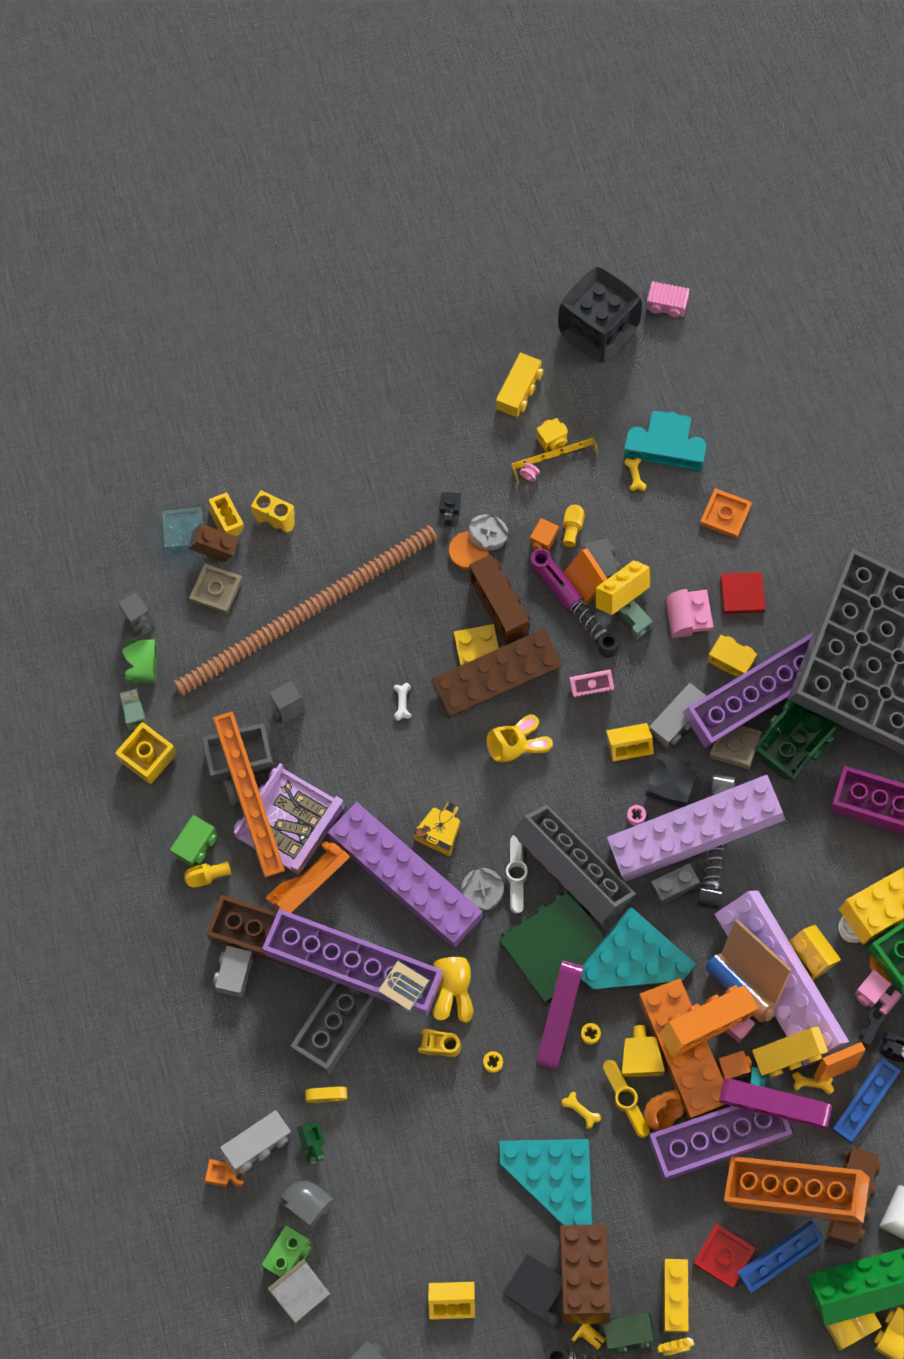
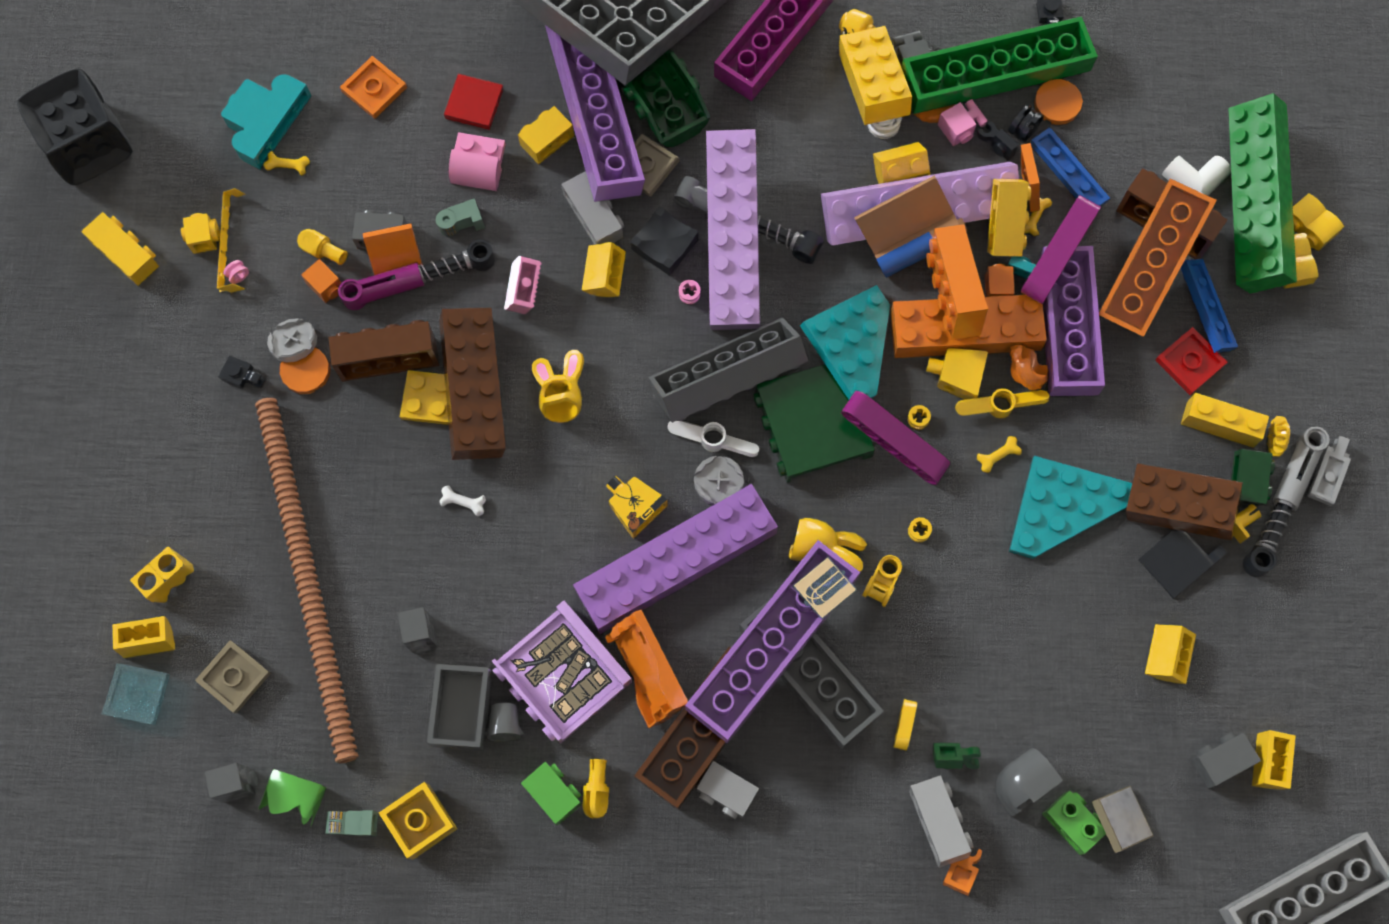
camera: 75 degrees left, 5 degrees up
(213, 543) = (173, 661): reddish brown brick -> none
(248, 794) = (517, 707): orange tile -> none
(622, 587) = (423, 213): yellow brick -> none
(667, 299) = (88, 54): bright pink brick -> none
(674, 885) = (784, 276): dark grey brick -> none

